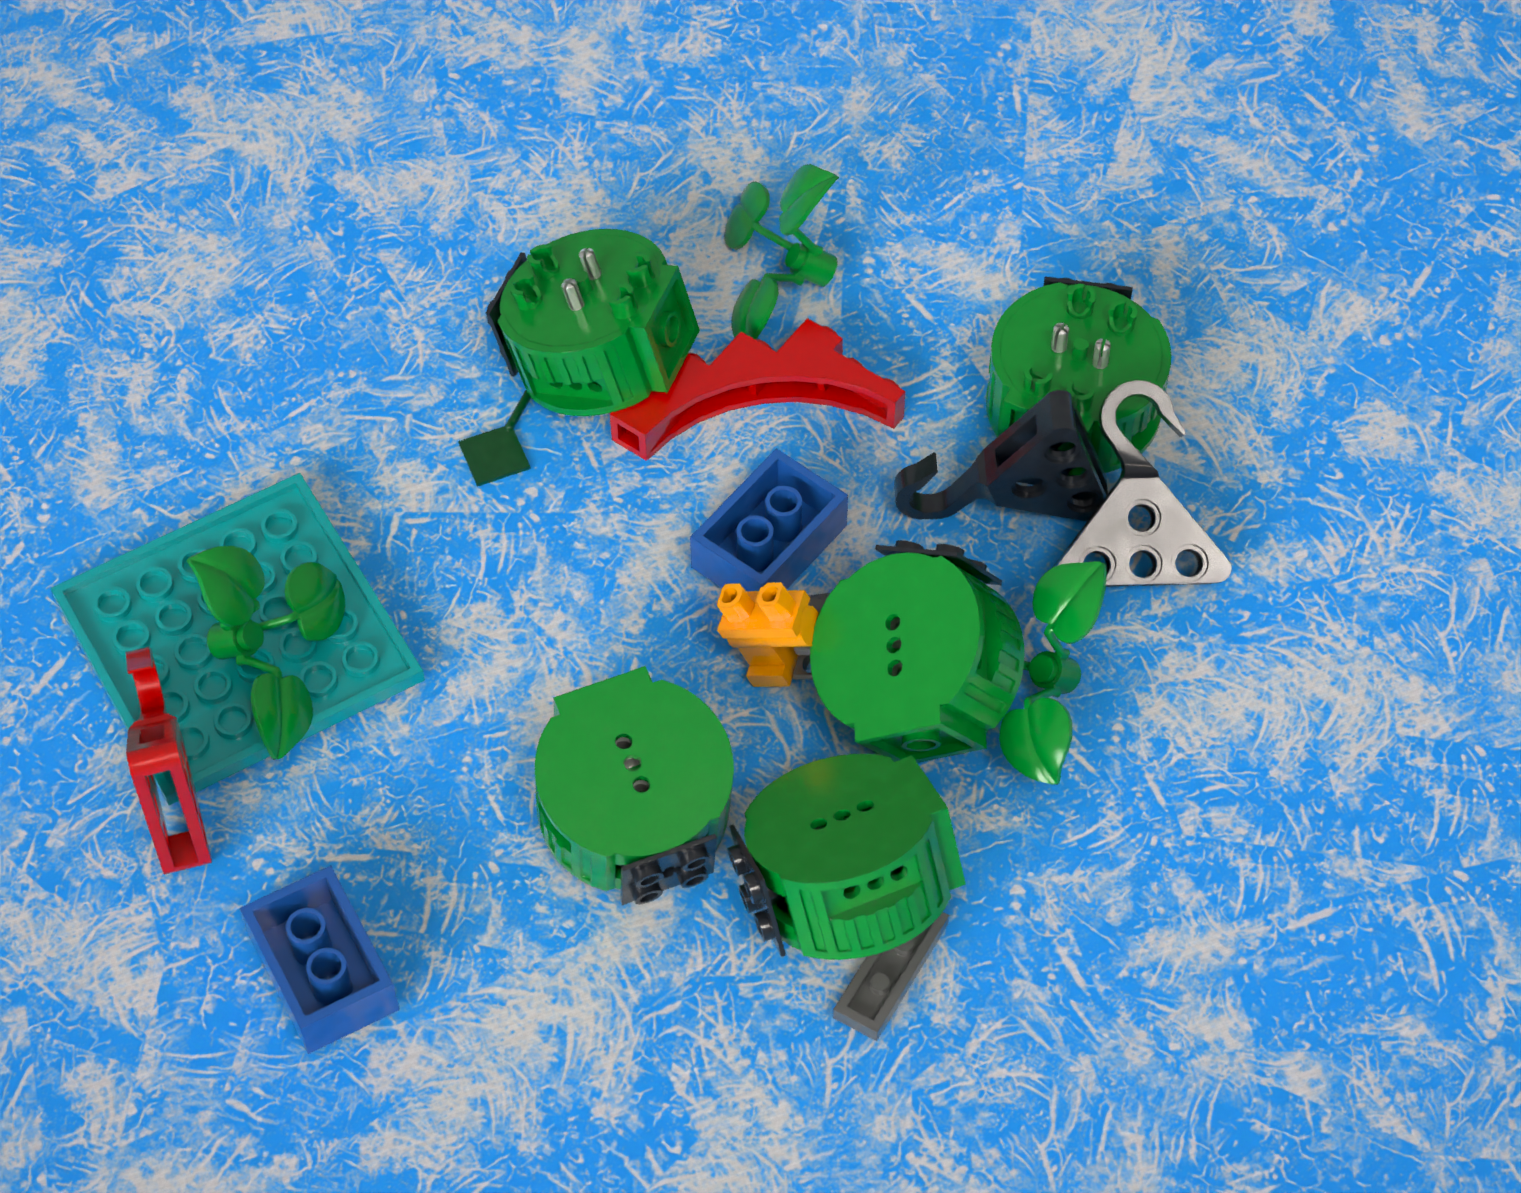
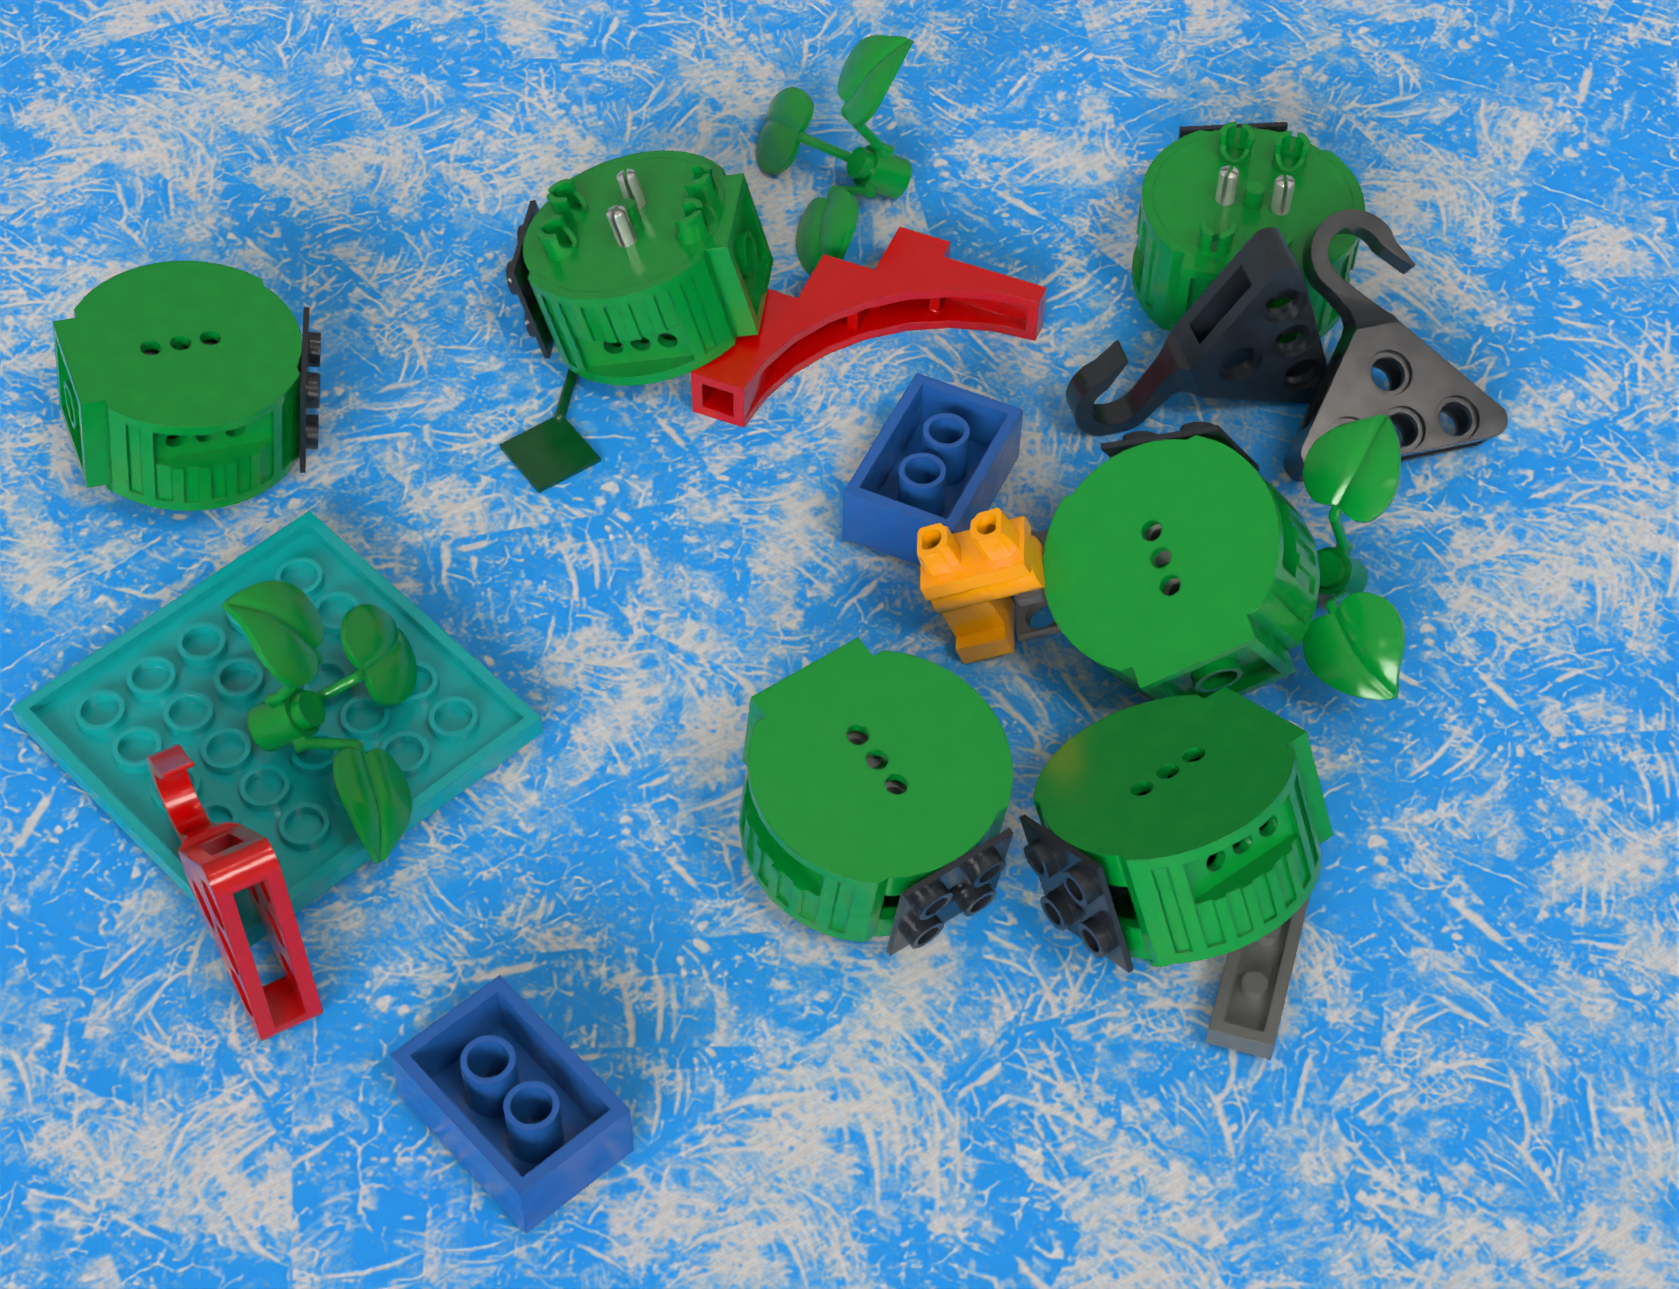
camera: 15 degrees left, 5 degrees down
(231, 360) = (187, 385): none -> green piece

